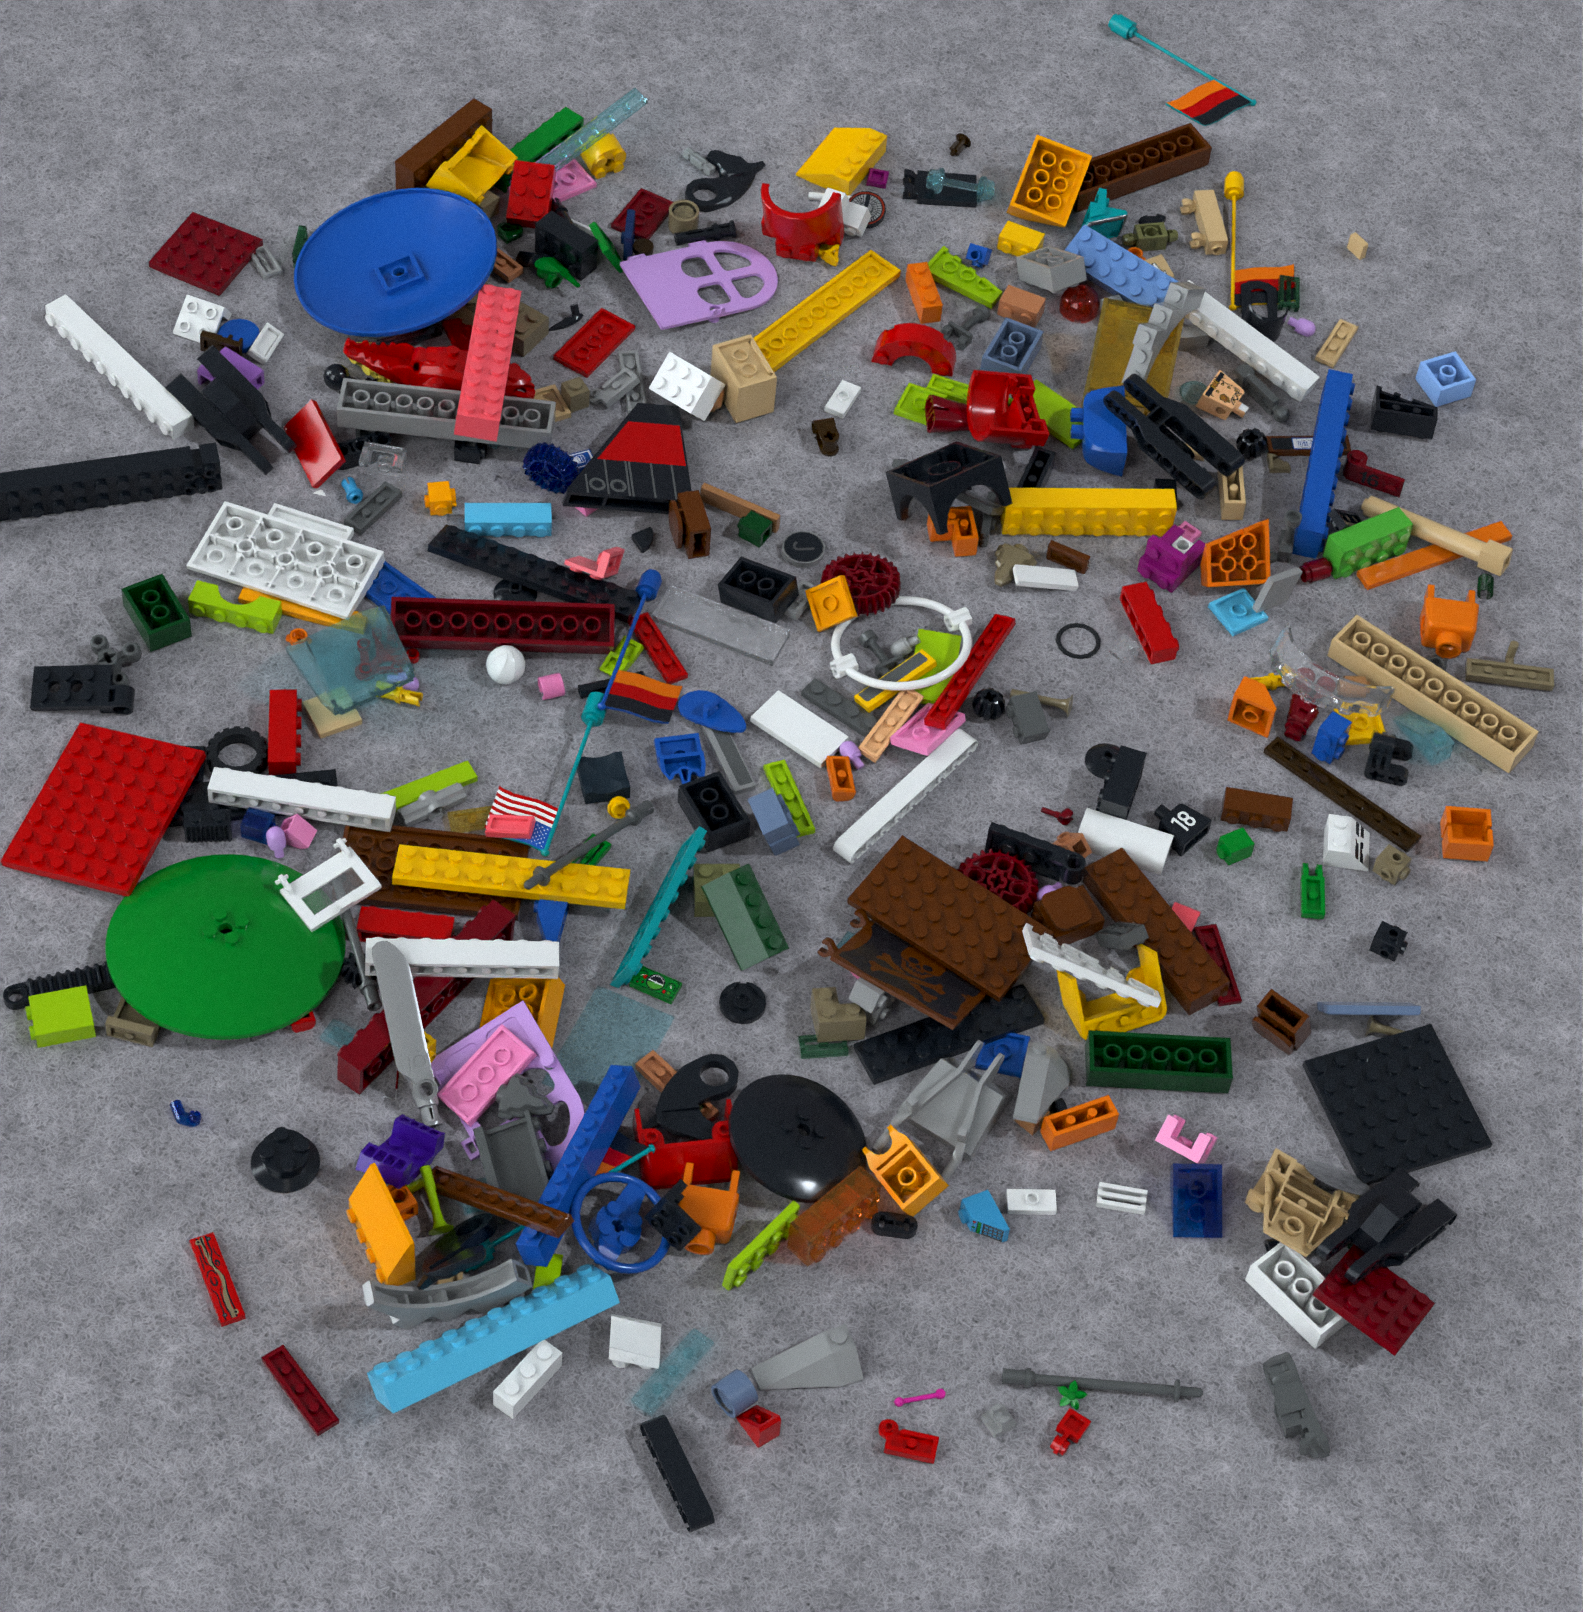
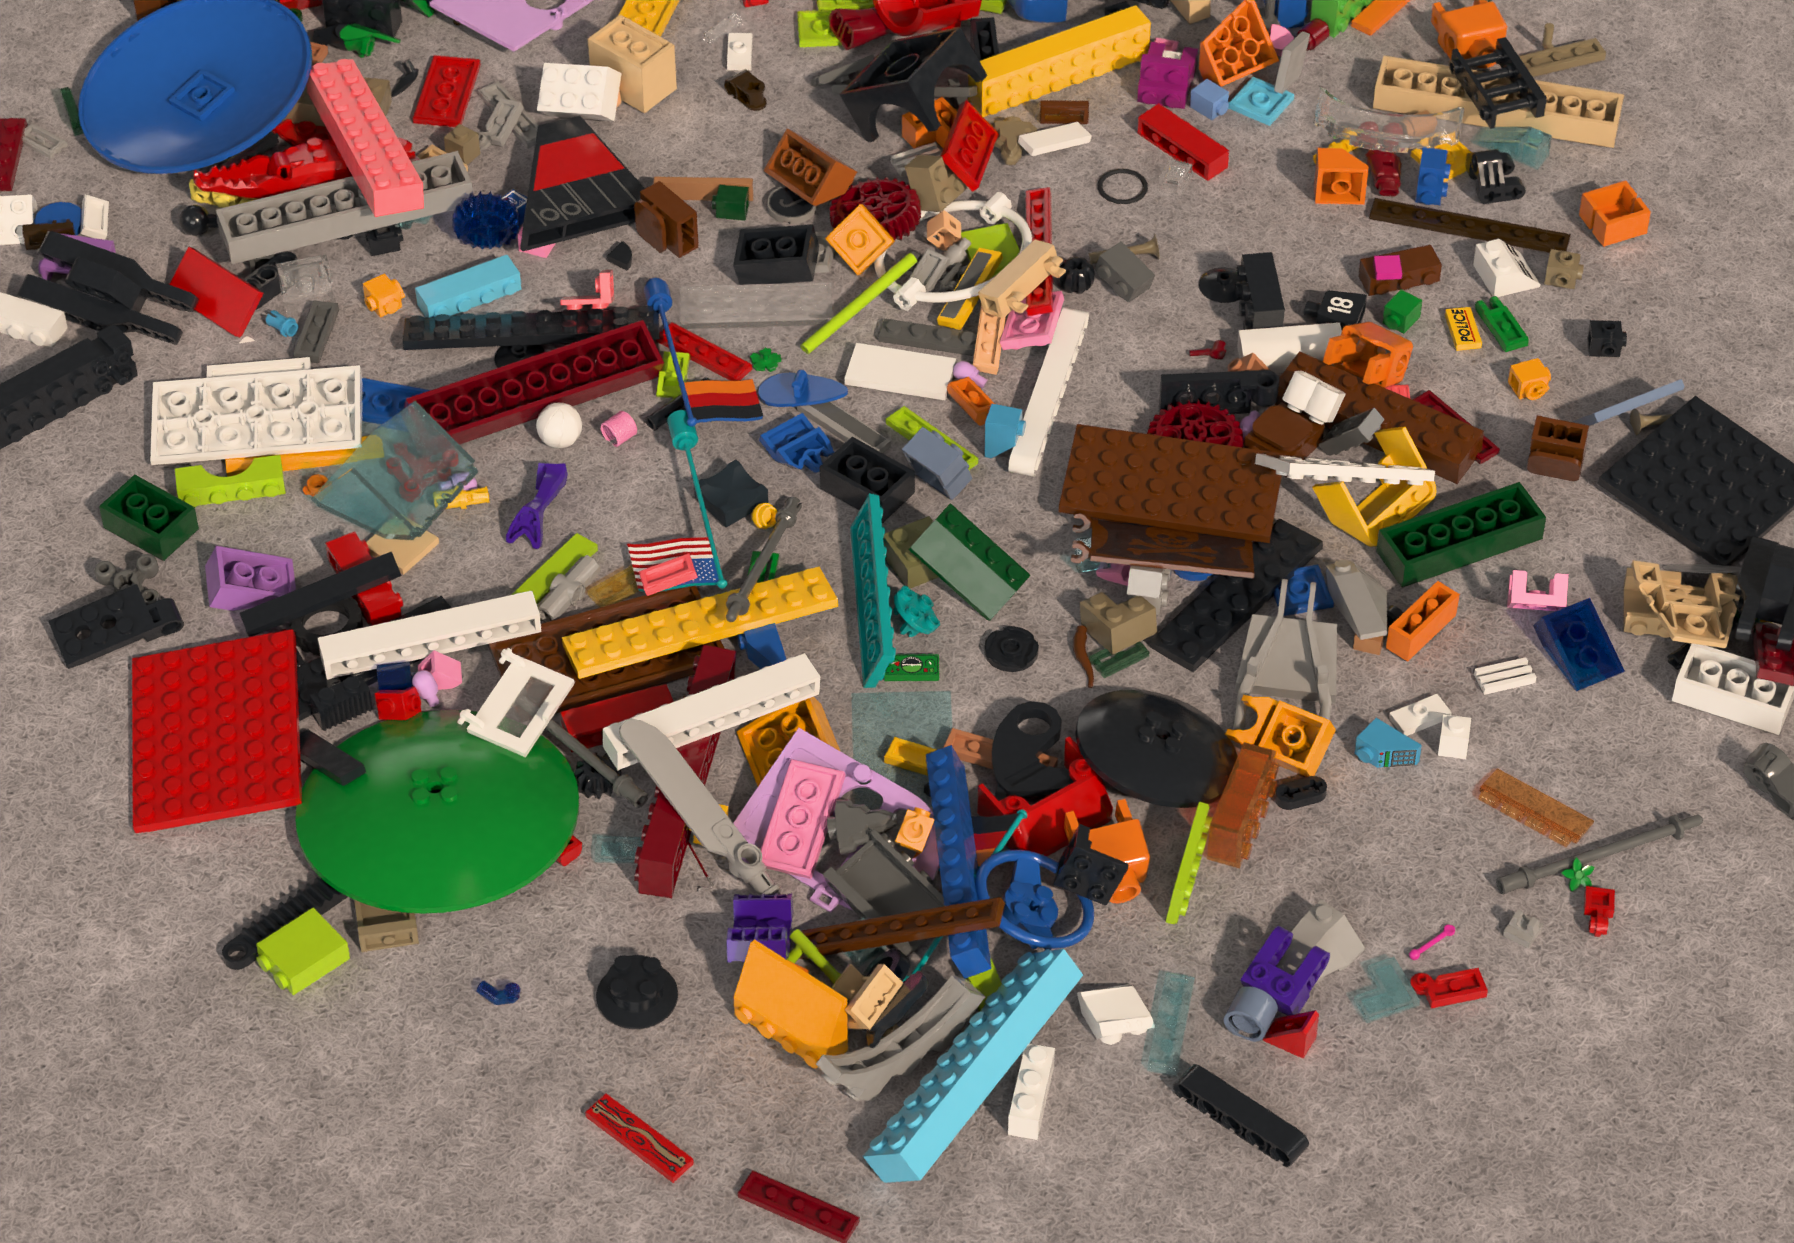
camera: 20 degrees left, 5 degrees down
(168, 868) = (329, 758): none -> black tile
(201, 695) = (246, 578): none -> medium lavender slope
(241, 731) = (320, 594): none -> black tile
(248, 846) = (398, 704): none -> red bracket
(435, 1239) = (865, 993): none -> tan panel
(436, 733) = (529, 520): none -> dark purple animal
(558, 1125) = (915, 829): none -> light orange brick
(606, 1054) = (908, 755): none -> yellow tile
(683, 939) = (916, 612): none -> teal plate
(702, 674) = (765, 360): none -> green plant
(761, 1373) = (1286, 989): none -> dark purple brick
(796, 1024) = (1079, 649): none -> reddish brown animal
(799, 657) = (858, 303): none -> lime piece
(829, 525) = (809, 169): none -> dark orange slope
(842, 813) = (1002, 429): none -> dark azure slope
(859, 1429) = (1392, 993): none -> clear light blue tile
(872, 652) = (930, 269): none -> light grey tile
(909, 625) = (946, 228): none -> light nougat piece
(910, 451) = (841, 73): none -> dark grey hinge
(919, 578) = (933, 182): none -> dark tan brick
(925, 550) = (900, 160): none -> white tile
(932, 691) = (1020, 279): none -> tan brick
(964, 557) = (969, 145): none -> red tile
(1043, 1233) = (1454, 736): none -> white brick
(1077, 1322) = (1540, 809): none -> clear orange windscreen
(1105, 893) = (1313, 397): none -> white brick
(1182, 882) = (1369, 356): none -> orange piece
(1193, 594) = (1209, 99): none -> medium blue brick
(1242, 803) = (1387, 267): none -> dark pink tile
(1279, 881) = (1463, 328): none -> yellow tile
(1280, 563) = (1280, 38): none -> bright pink brick
(1304, 950) = (1529, 379): none -> light orange brick
(1453, 672) = (1511, 68): none -> black fence

